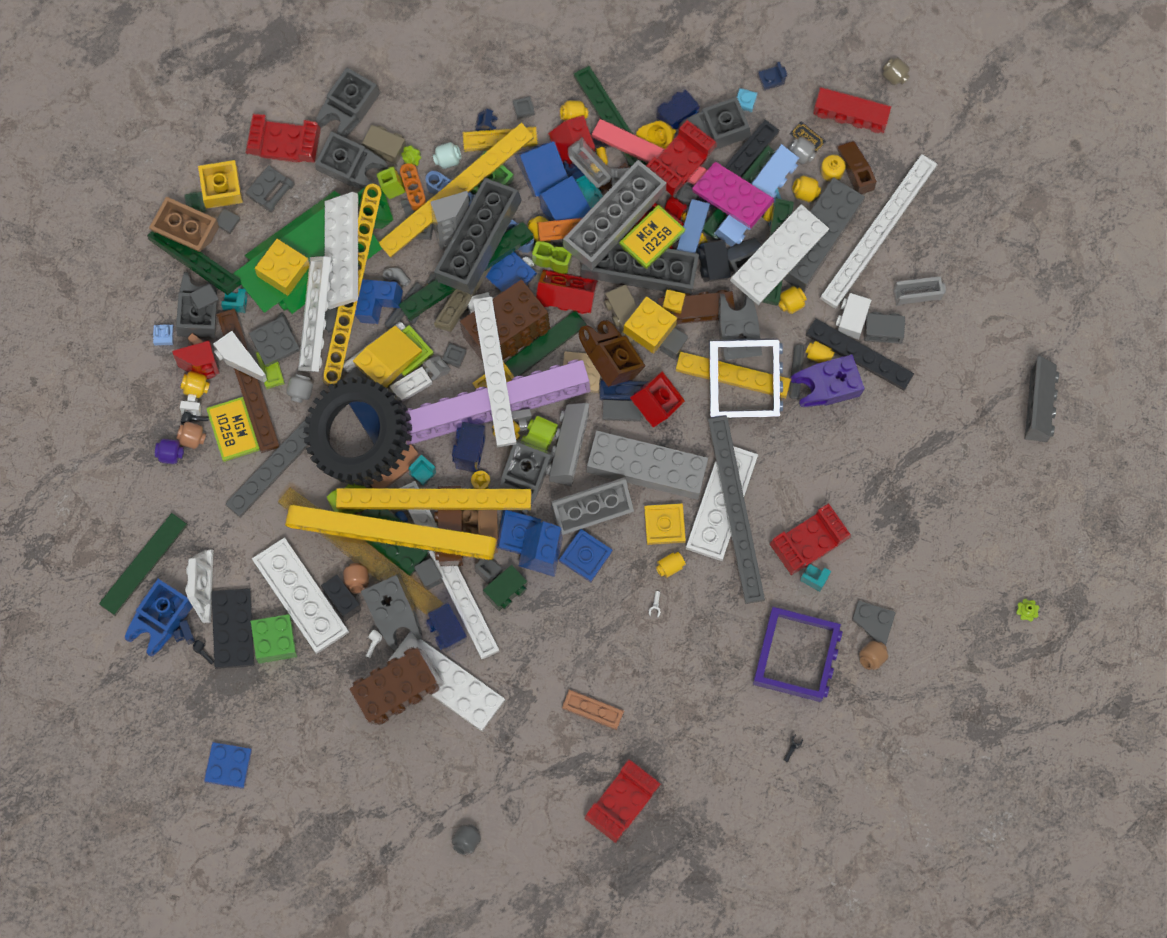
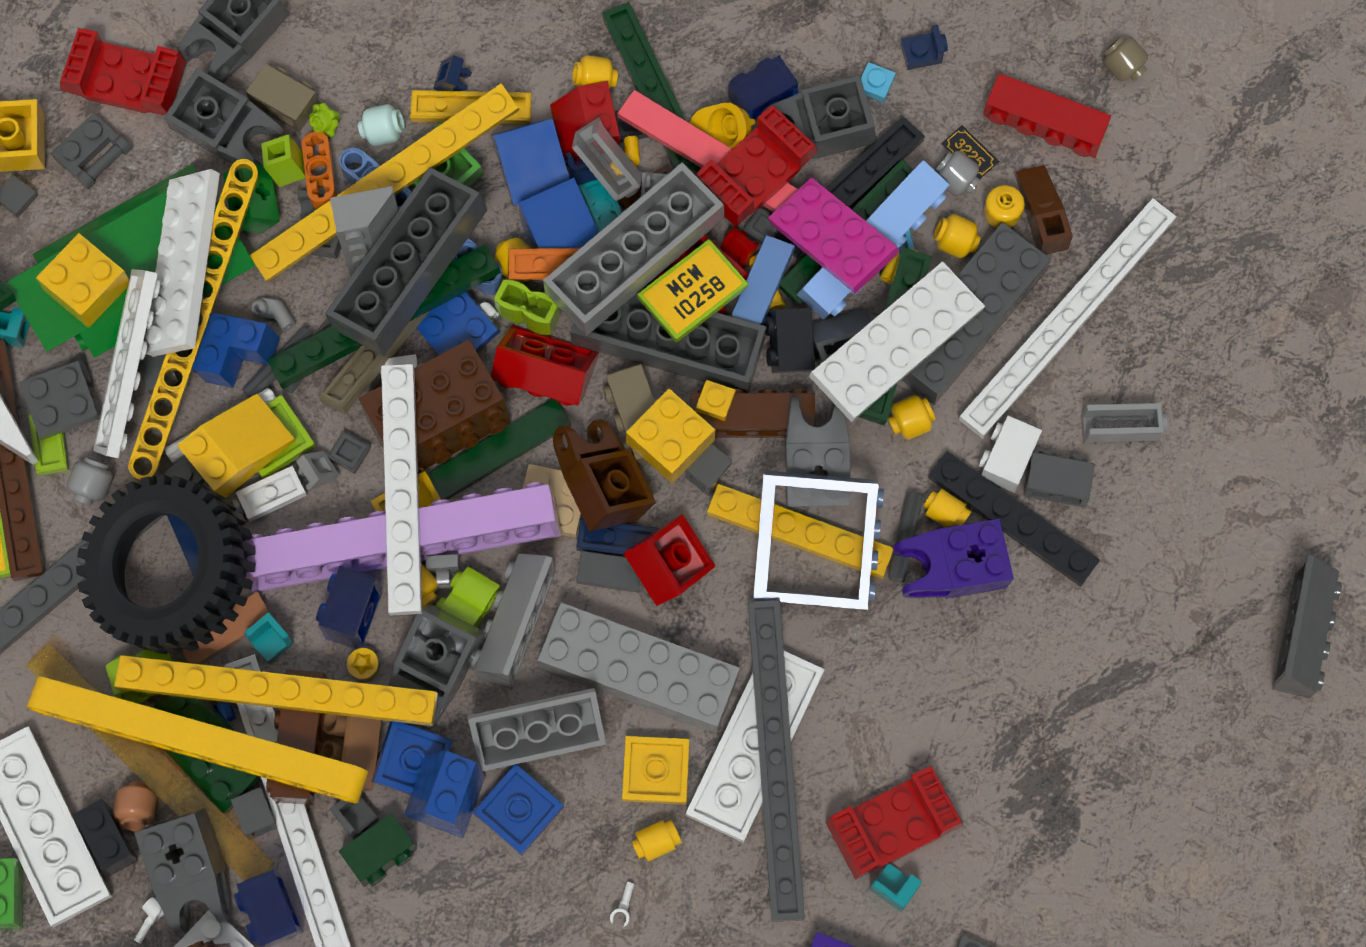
camera: 10 degrees right, 0 degrees up
(523, 107) = (515, 60): dark grey tile -> none

